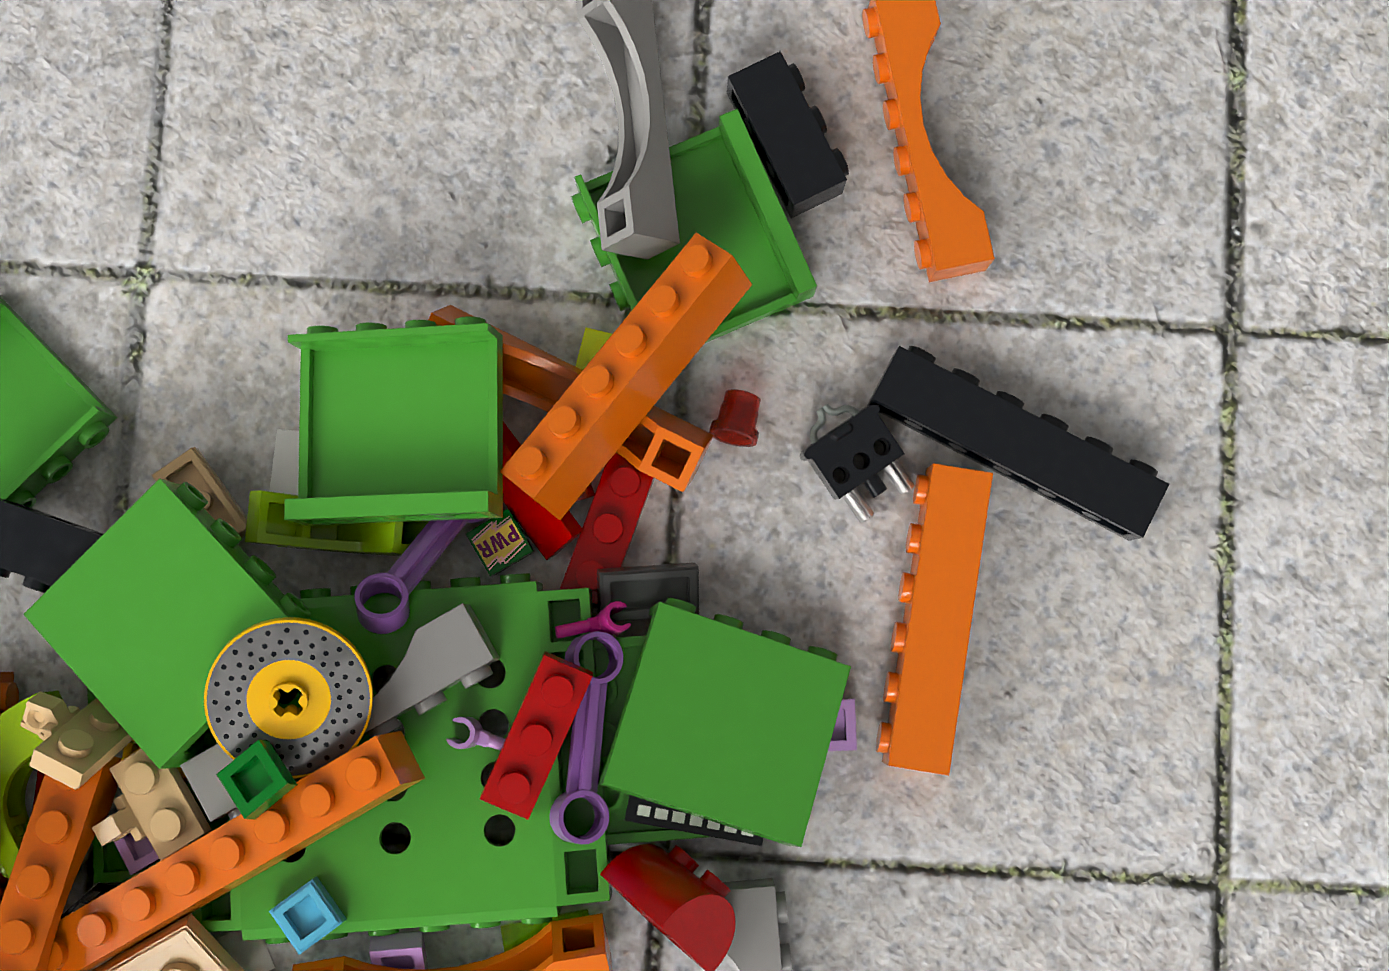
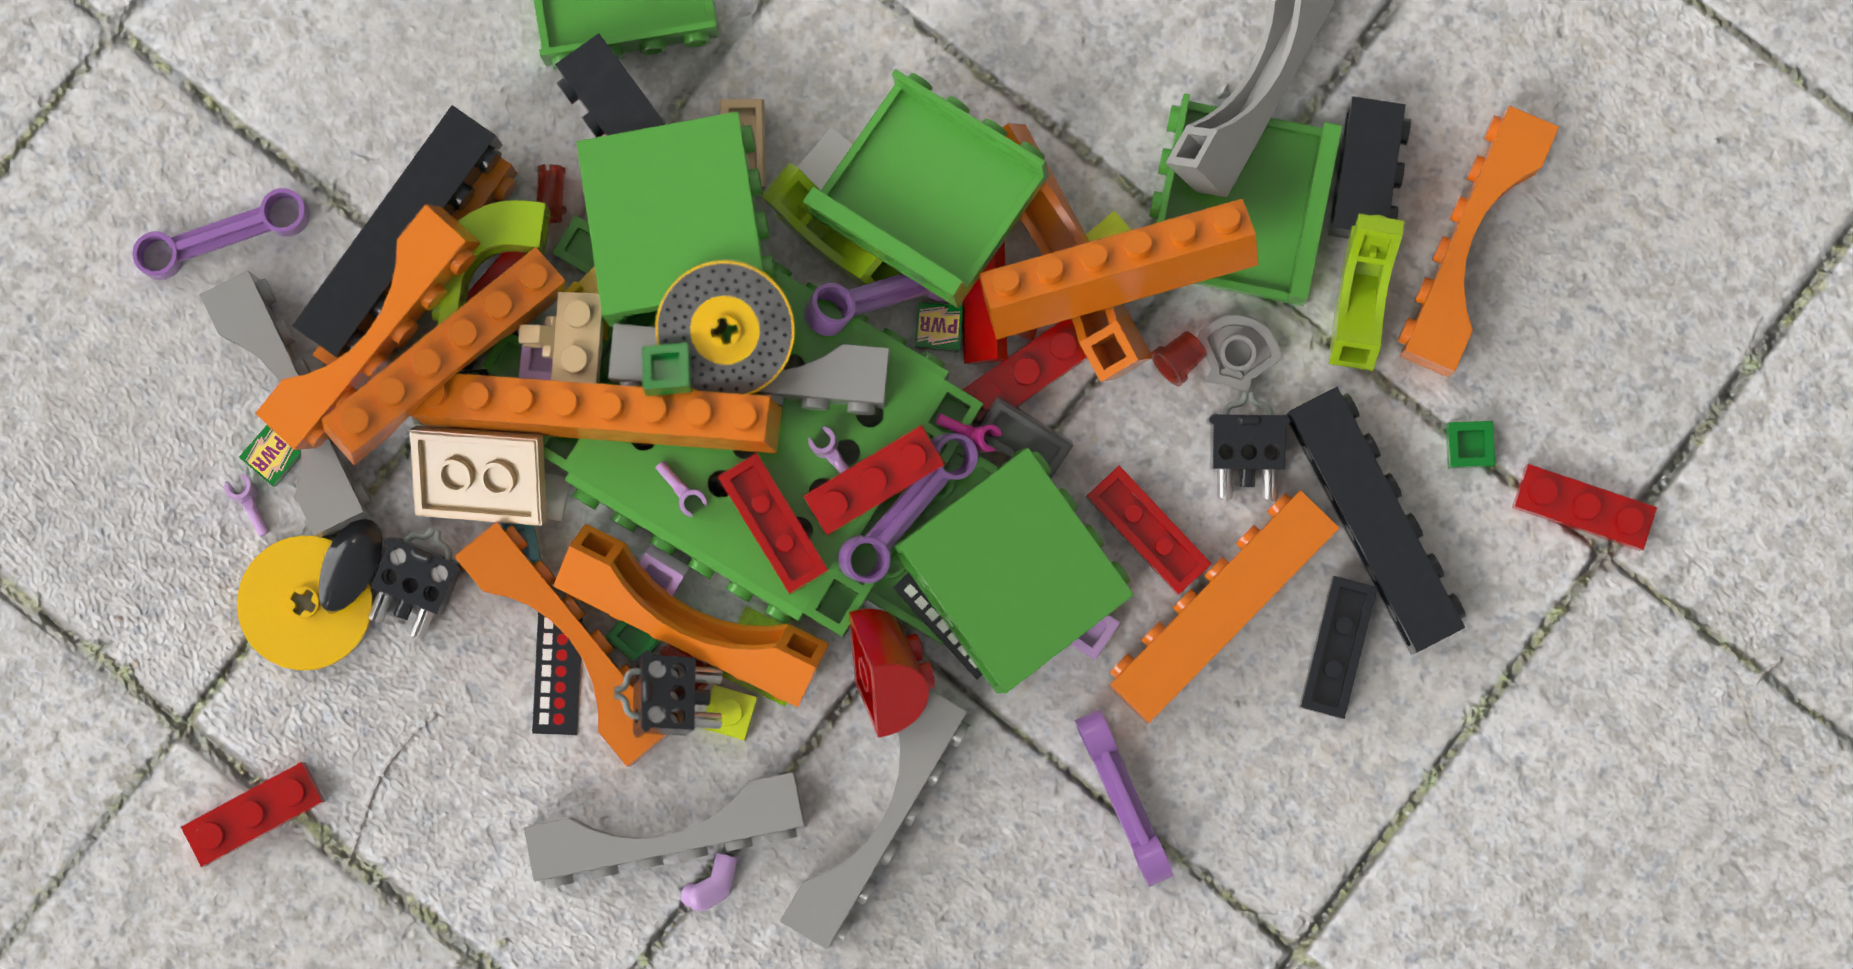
camera: 40 degrees right, 0 degrees up
(53, 671) = (551, 190): none -> clear red pin
(73, 739) = (553, 256): tan hinge -> none
(307, 915) = (624, 493): medium azure tile -> none
(360, 873) = (679, 487): none -> lavender hand
(469, 845) = (773, 523): none -> red plate
(785, 375) = (1238, 350): none -> light grey animal
(820, 595) = (1148, 530): none -> red plate
(859, 244) = (1363, 291): none -> lime arch
(972, 858) = (1124, 798): none -> medium lavender piece
(1048, 316) = (1470, 444): none -> green tile
(1064, 582) = (1338, 647): none -> black plate
(1187, 302) = (1584, 507): none -> red plate

